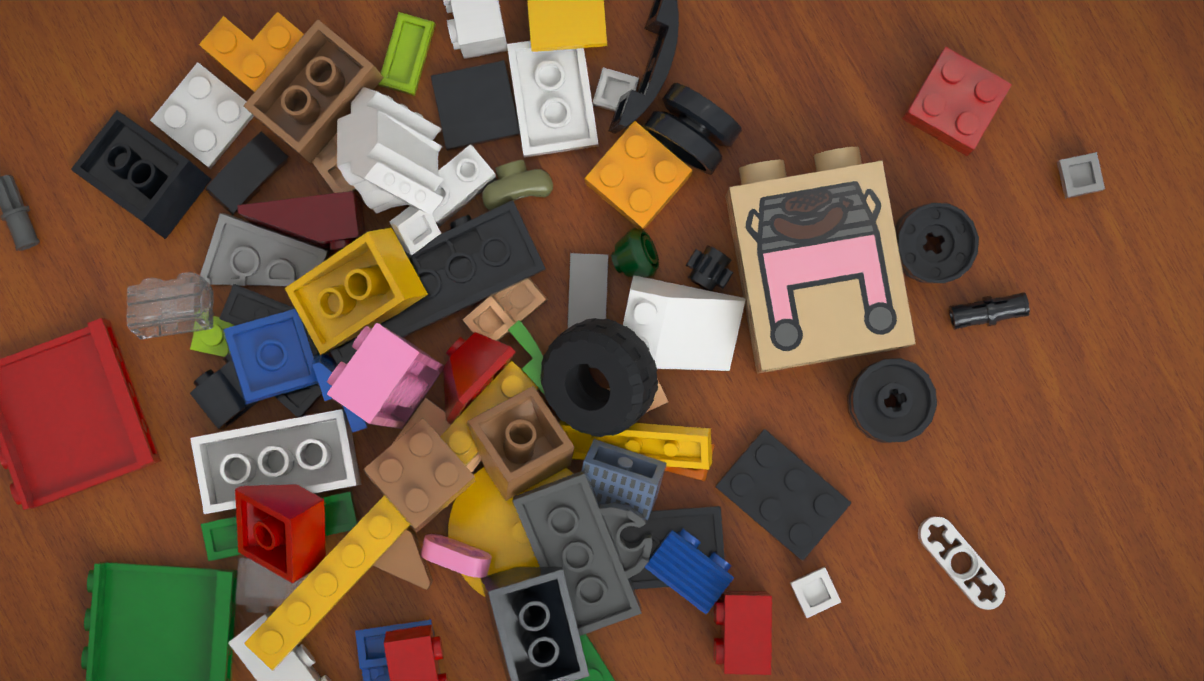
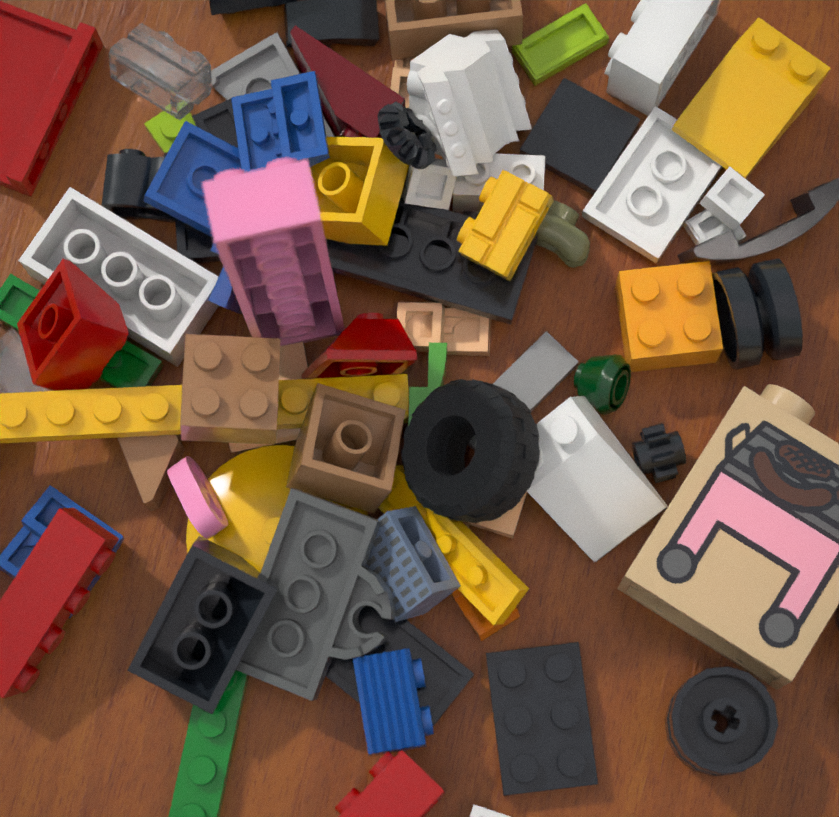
camera: 45 degrees right, 10 degrees down
(291, 281) = (281, 123): none -> blue slope
(390, 218) = (406, 136): none -> black gear
(489, 215) = (504, 224): none -> yellow brick
(610, 64) = (731, 198): none -> white plate

